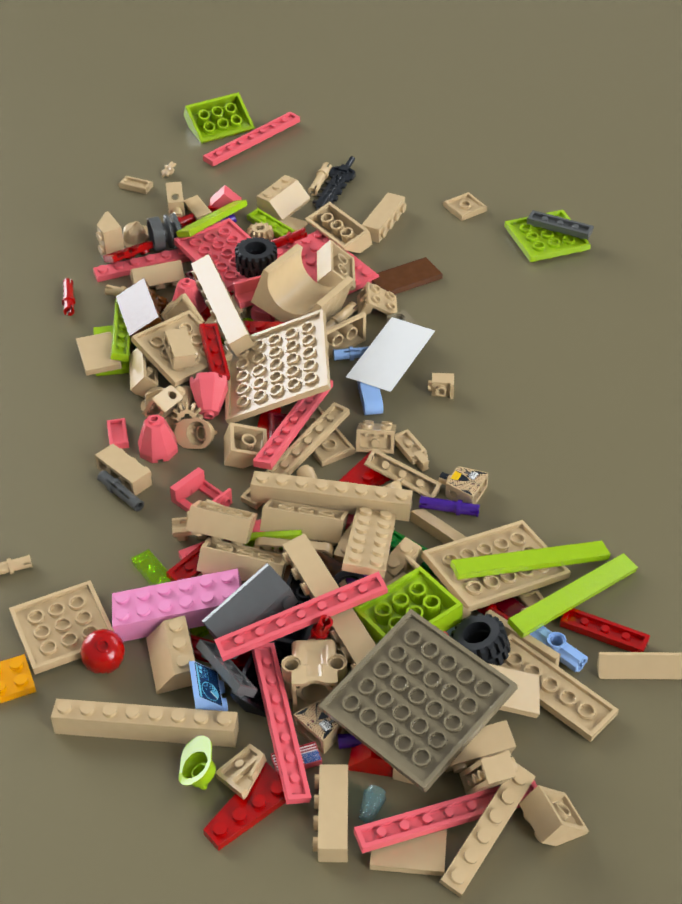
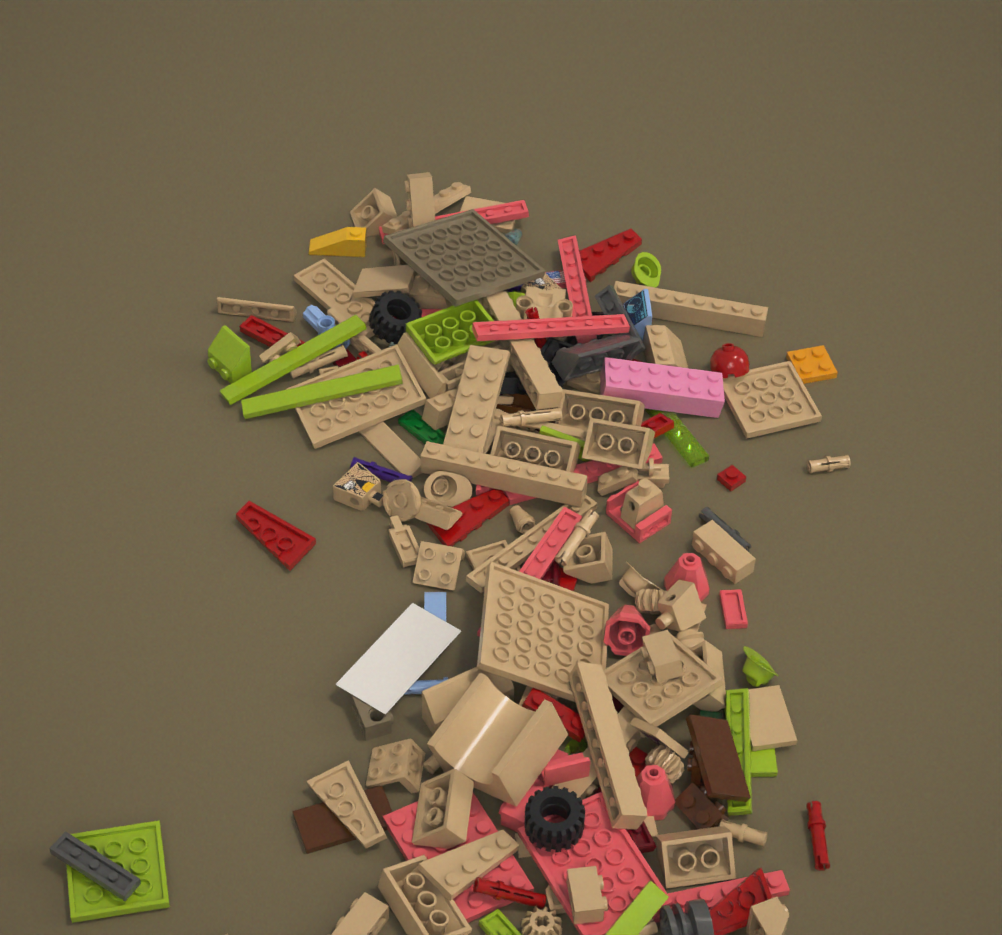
camera: 175 degrees left, 5 degrees up
(99, 385) = (757, 668): none -> lime piece
(110, 544) = (731, 478): none -> red plate
(195, 485) = (641, 502): none -> tan torso
(214, 349) = (619, 669): red tile -> none
(231, 227) = (585, 895): none -> tan brick
(242, 770) = (610, 268): tan wing -> none
(252, 447) = (582, 530): none -> tan pin
(317, 239) = (460, 867): none -> tan wing
(324, 535) = (523, 418): none -> tan pin
(332, 813) = (542, 233): tan brick -> none
(403, 274) = (347, 800): none -> tan wing
(422, 467) = (402, 499): none -> tan tile
(442, 385) = (347, 619): tan brick -> none
(528, 444) = (275, 534): none -> red wing
(581, 767) = (342, 242): none -> yellow slope
(592, 602) = (280, 348): none -> tan plate
(640, 594) = (229, 355): none -> lime slope

